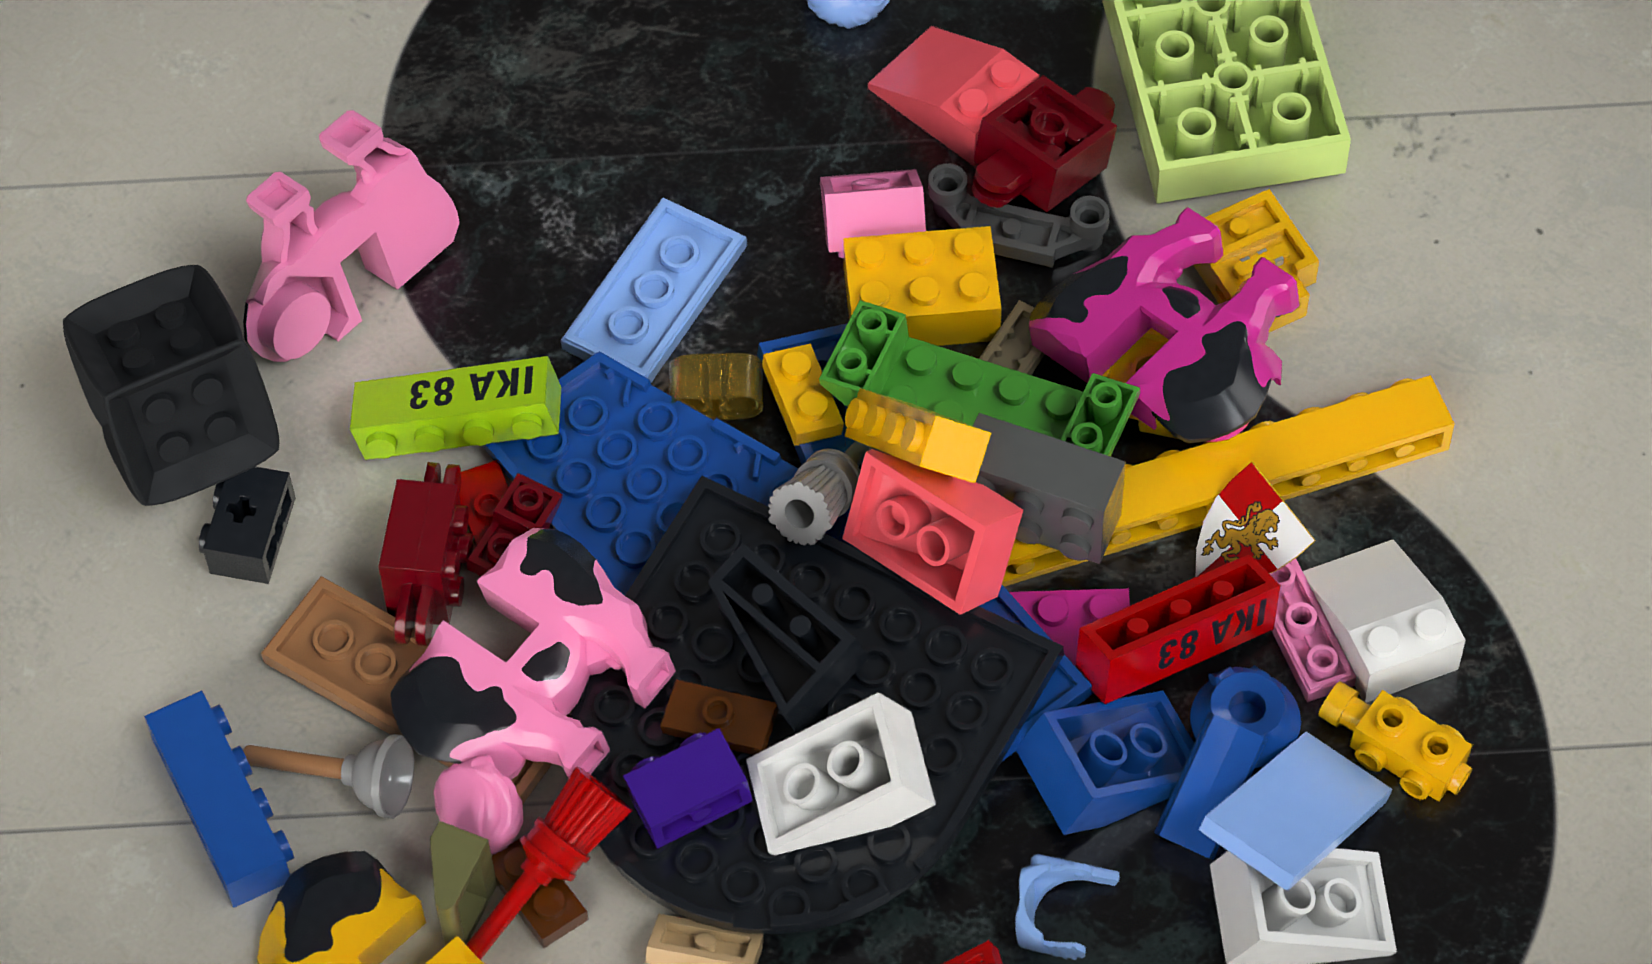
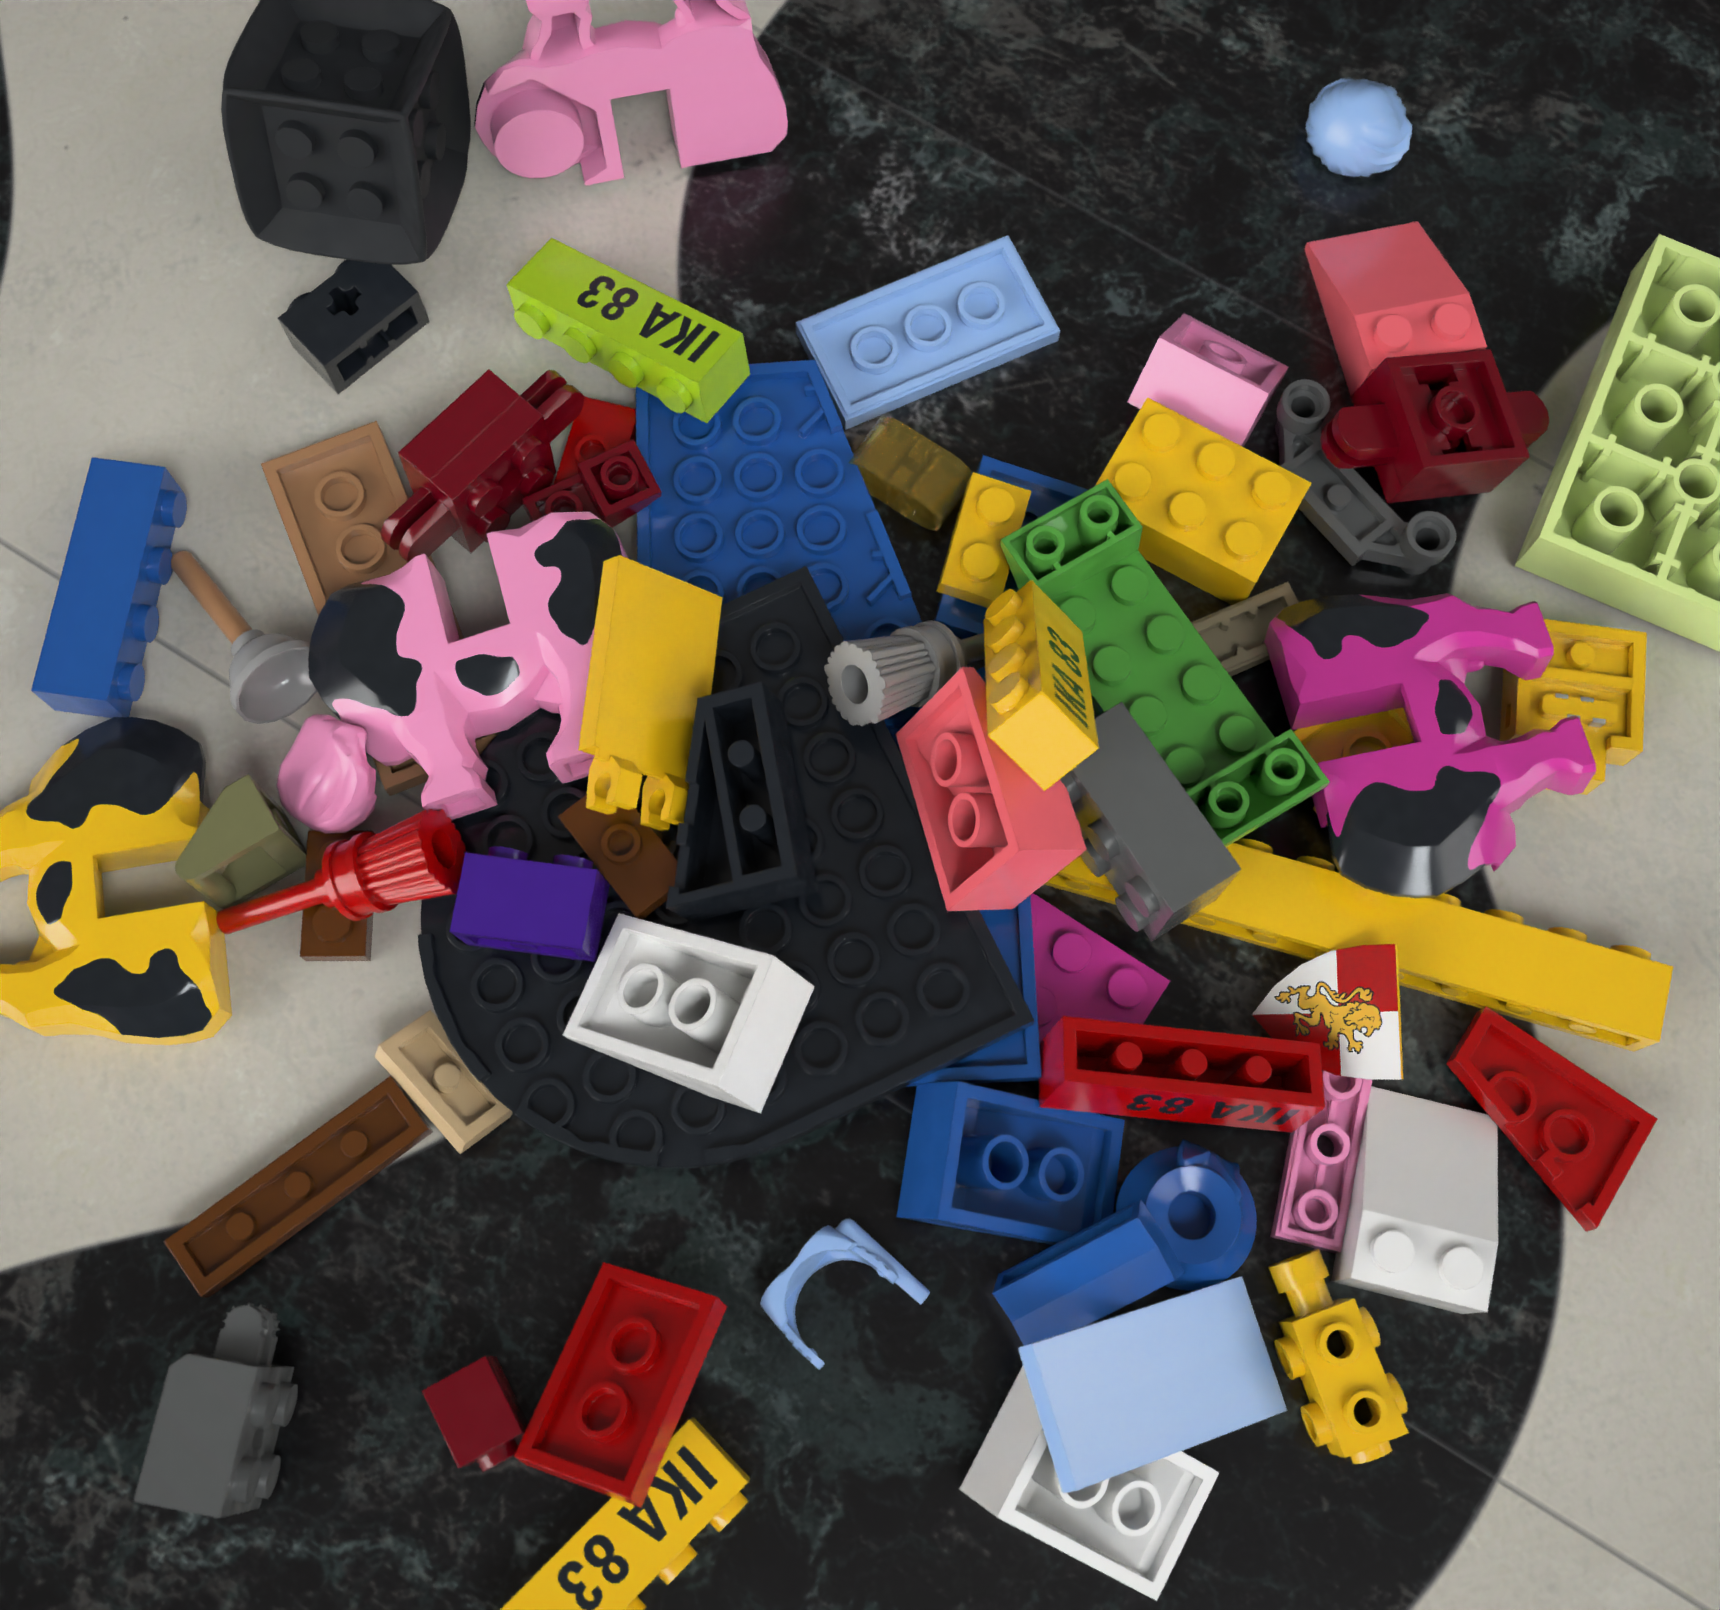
camera: 30 degrees right, 15 degrees up
(667, 605) = (643, 687): none -> yellow tile
(1422, 511) = (1553, 1112): none -> red wing

